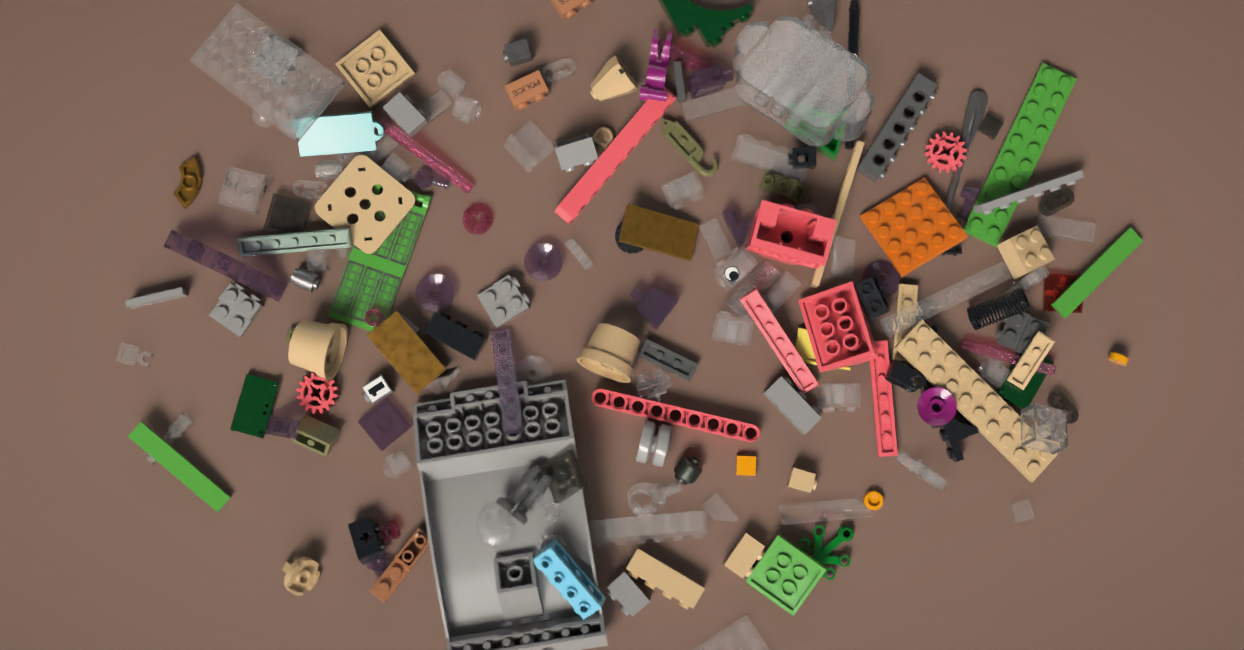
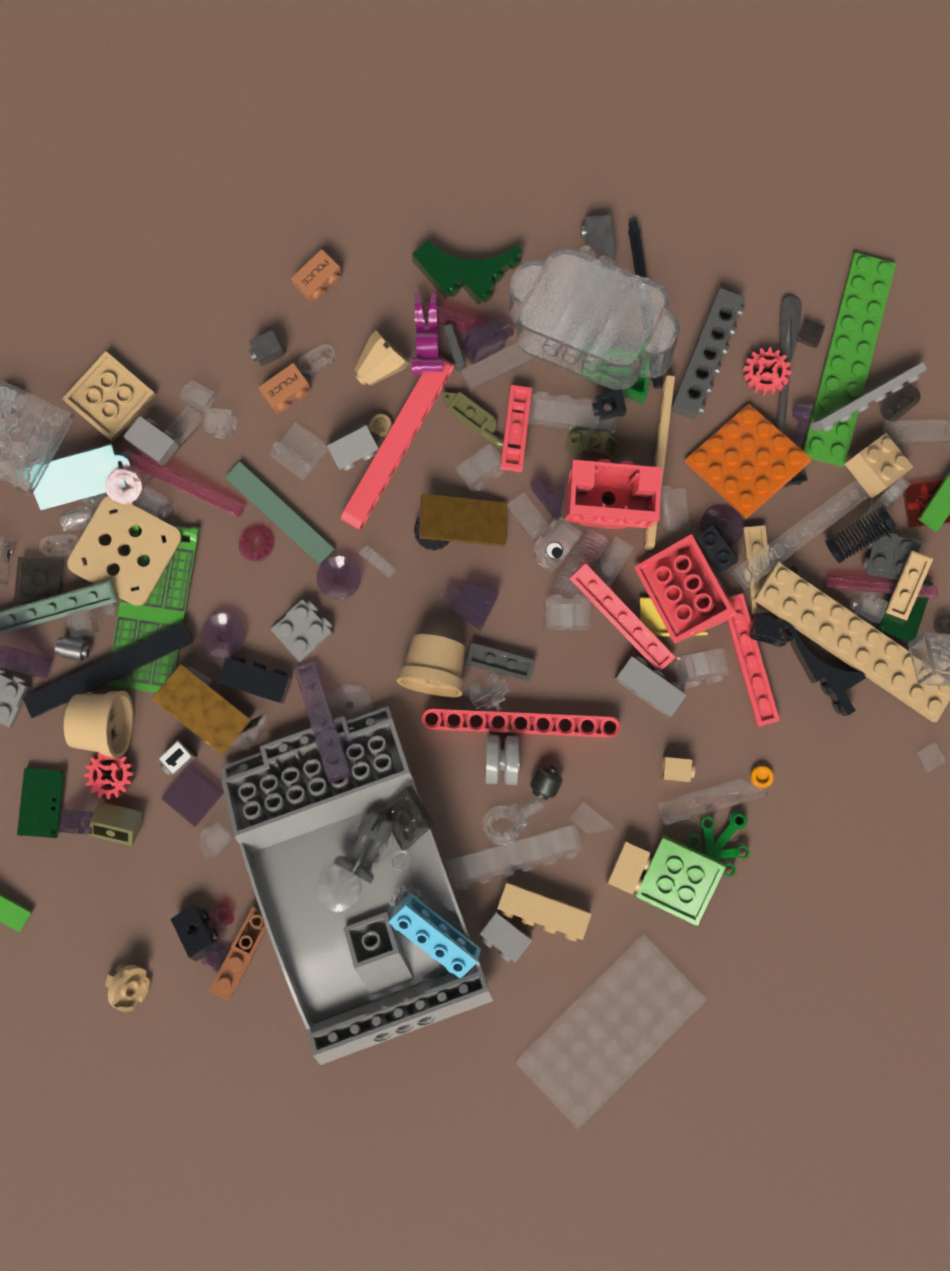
camera: 10 degrees left, 0 degrees up
(332, 304) = (108, 670): none -> black tile
(367, 153) = (116, 492): none -> gear
(370, 313) = (153, 672): clear pink bush -> none
(429, 180) = (193, 510): clear purple bar -> none
(503, 197) = (279, 513): none -> sand green tile
(719, 161) = (516, 428): none -> coral hinge
(746, 465) = (610, 764): light orange tile -> none
(923, 472) = (811, 733): clear pin -> none
(943, 399) = (823, 651): magenta dish -> none

